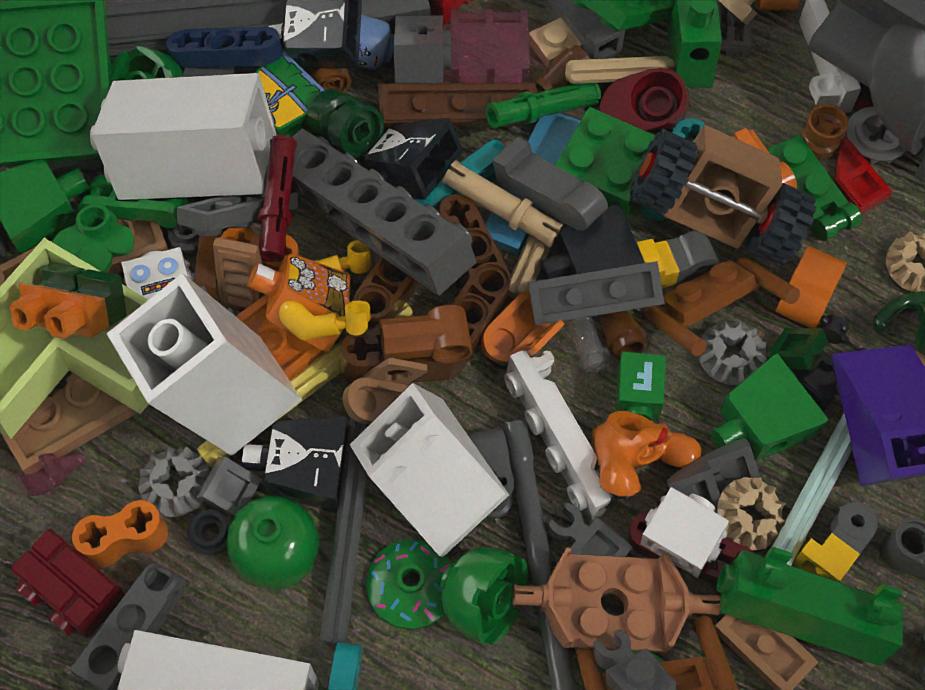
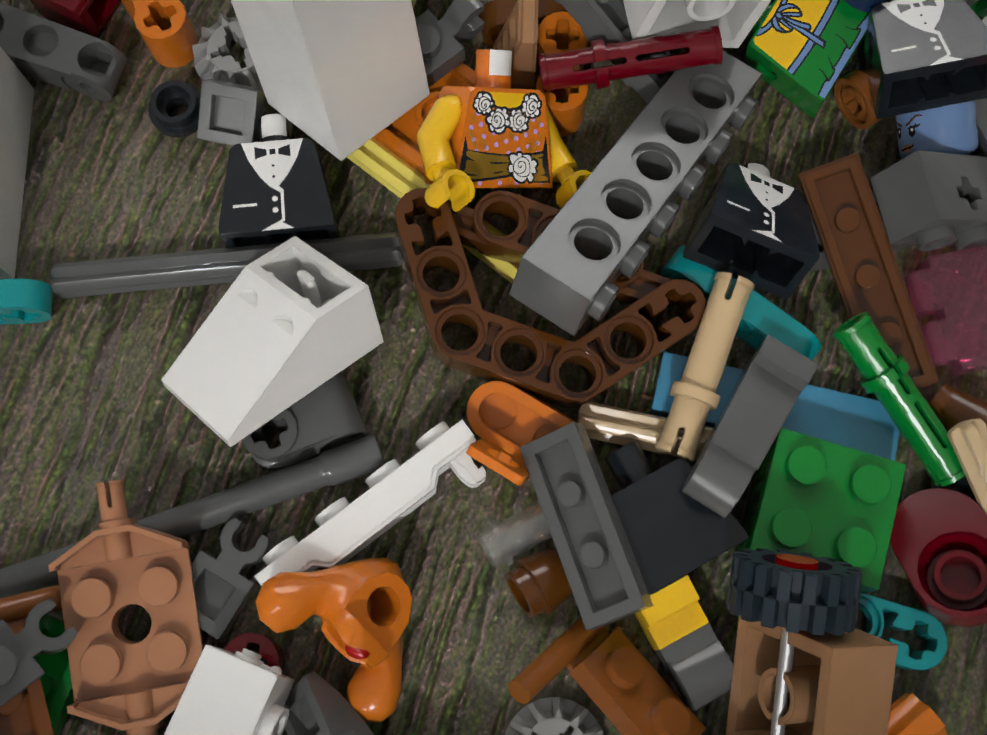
camera: 80 degrees right, 10 degrees up
(272, 542) = (170, 181): green cylinder -> none
(345, 122) = (786, 125): dark green wheel -> none
(377, 389) = (376, 257): medium nougat bracket -> none
(401, 604) = (132, 388): green dish -> none
(438, 334) = (454, 307): dark orange piece -> none
(480, 593) = (124, 440): green cylinder -> none
(641, 384) = (460, 616): green brick -> none

